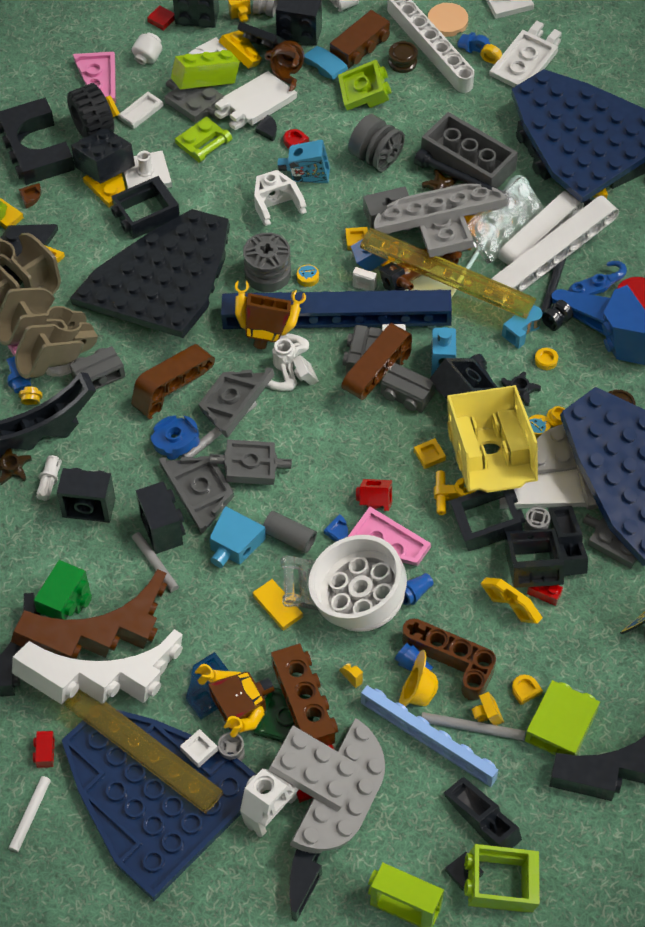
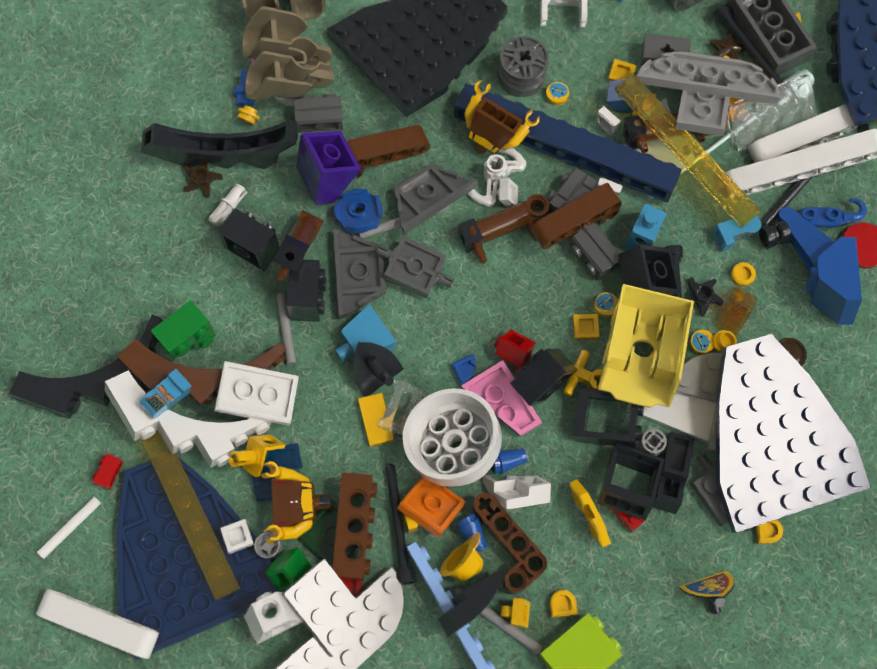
camera: 20 degrees right, 15 degrees up
(77, 643) = (166, 394): none -> dark azure leg
(101, 879) = (97, 623): none -> white beam
(128, 405) = (326, 165): none -> dark purple slope
(136, 478) = (297, 243): none -> piece
(158, 618) = (256, 393): none -> white tile
(179, 676) = (255, 453): none -> yellow bracket
(255, 558) = (374, 367): none -> black shield
(259, 754) = (288, 568): none -> green brick
(289, 531) = (418, 352): dark grey pin -> none
(292, 413) = (477, 232): none -> reddish brown piece
(365, 651) = (431, 506): none -> orange tile
(367, 718) = (404, 572): none -> black piece
(413, 500) = (543, 376): none -> black brick
(438, 428) = (605, 304): none -> tile
(438, 608) = (518, 490): none -> white slope
(442, 714) = (470, 603): none -> black slope
(555, 389) = (736, 311): none -> clear orange slope

